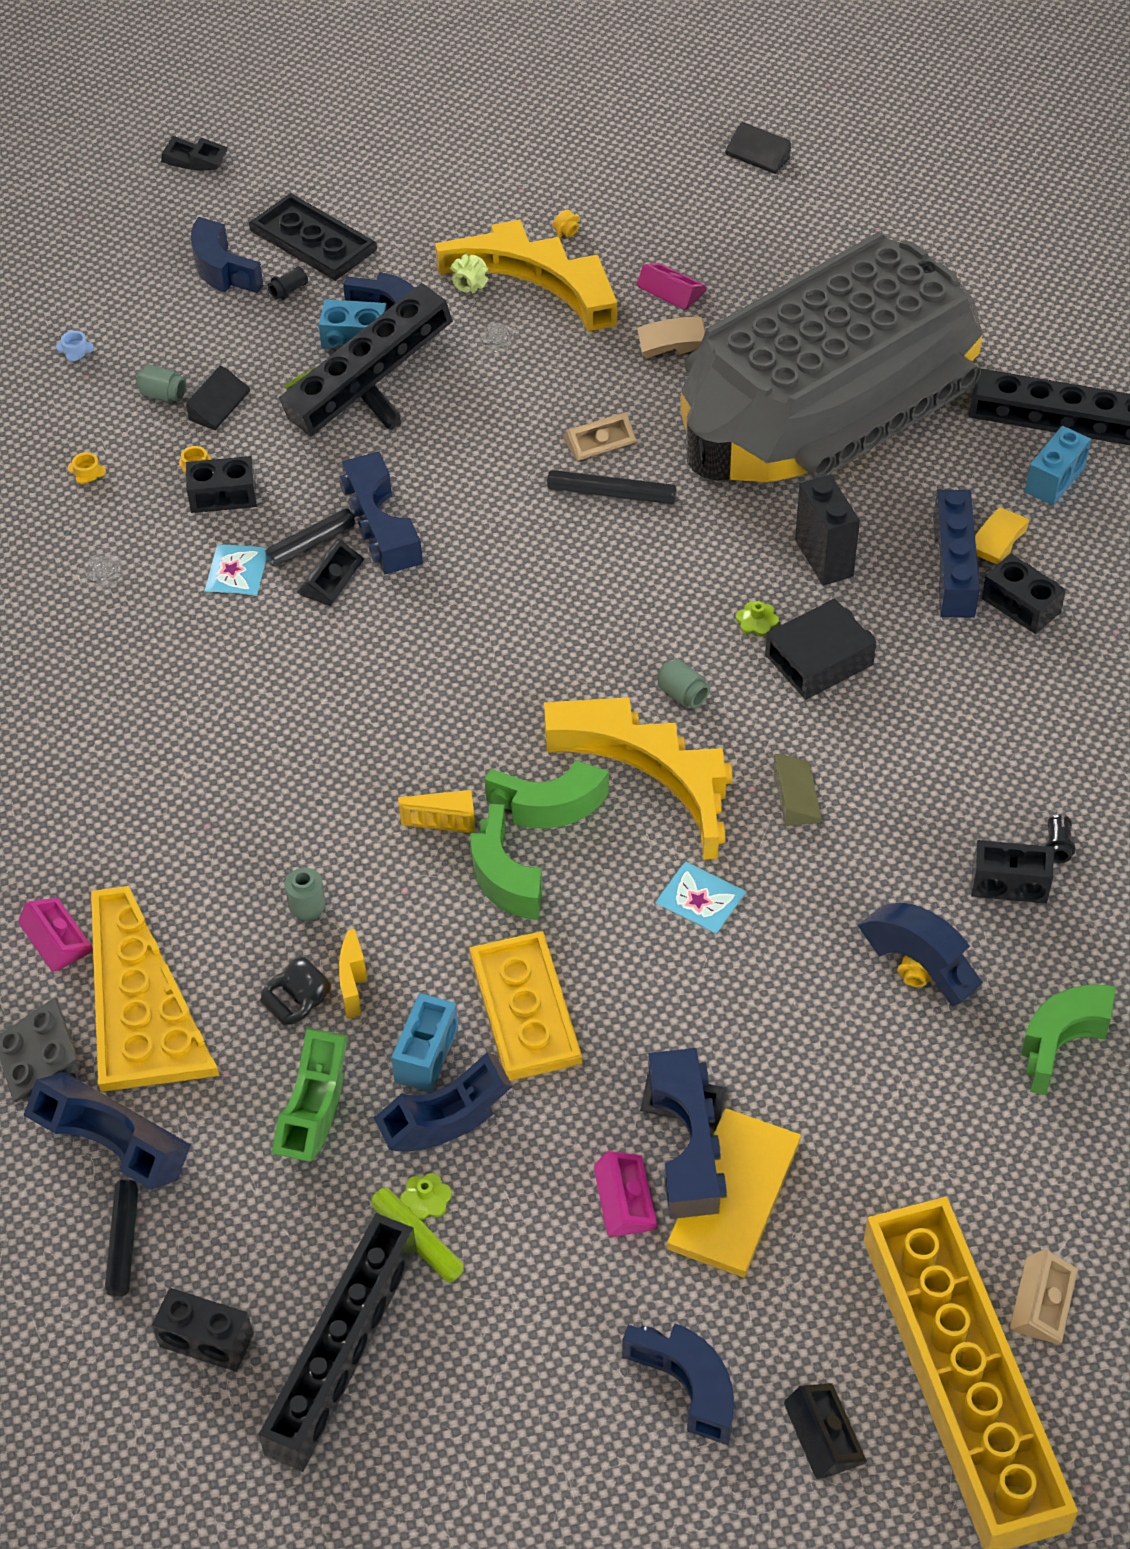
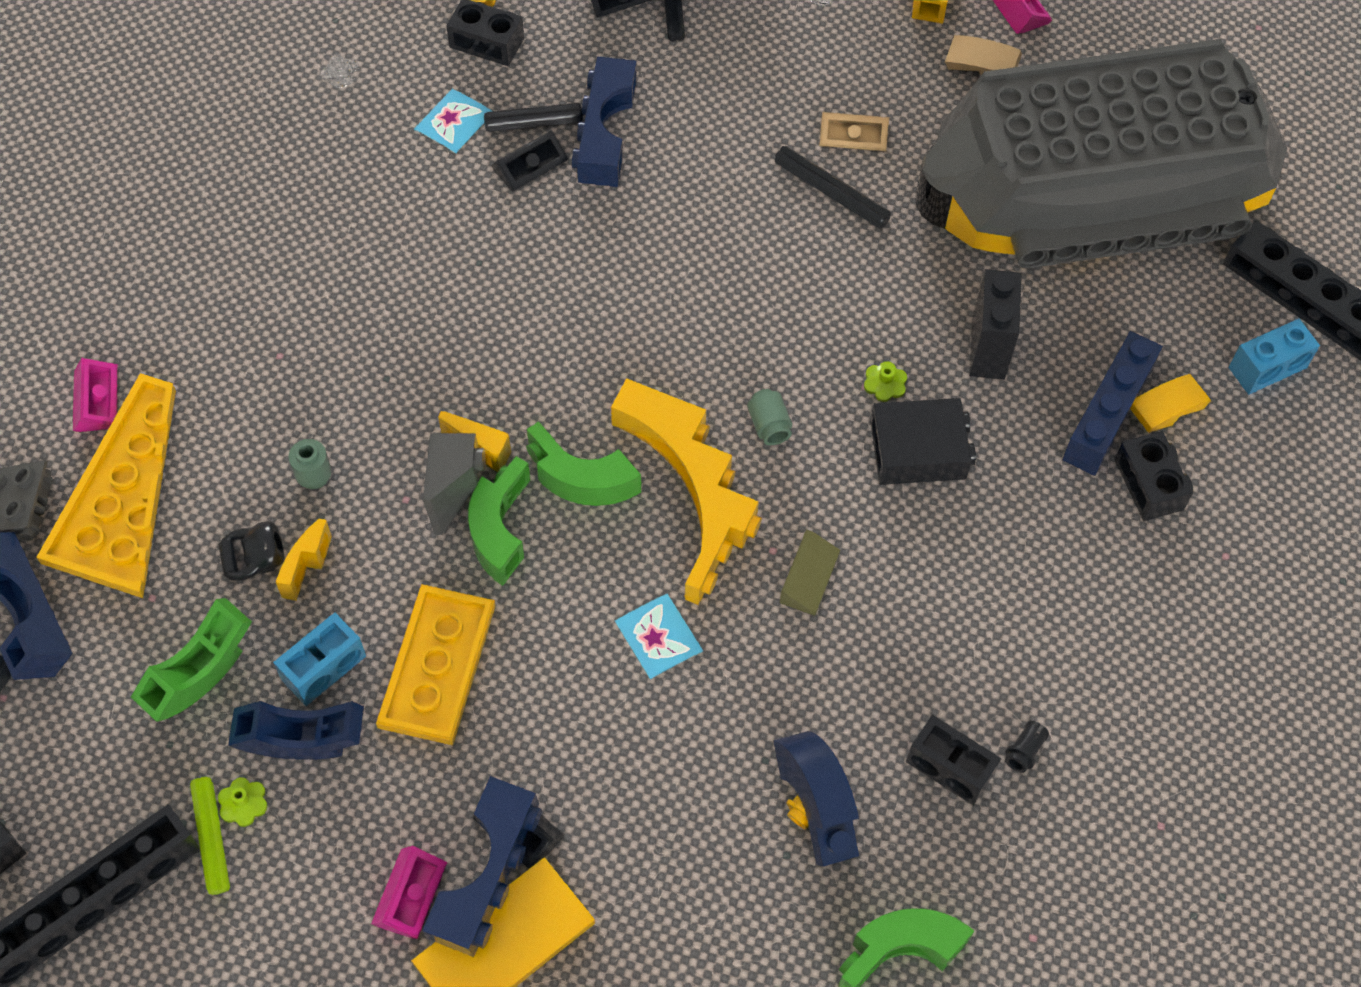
camera: 25 degrees right, 10 degrees up
(445, 842) = (450, 475): none -> dark grey slope

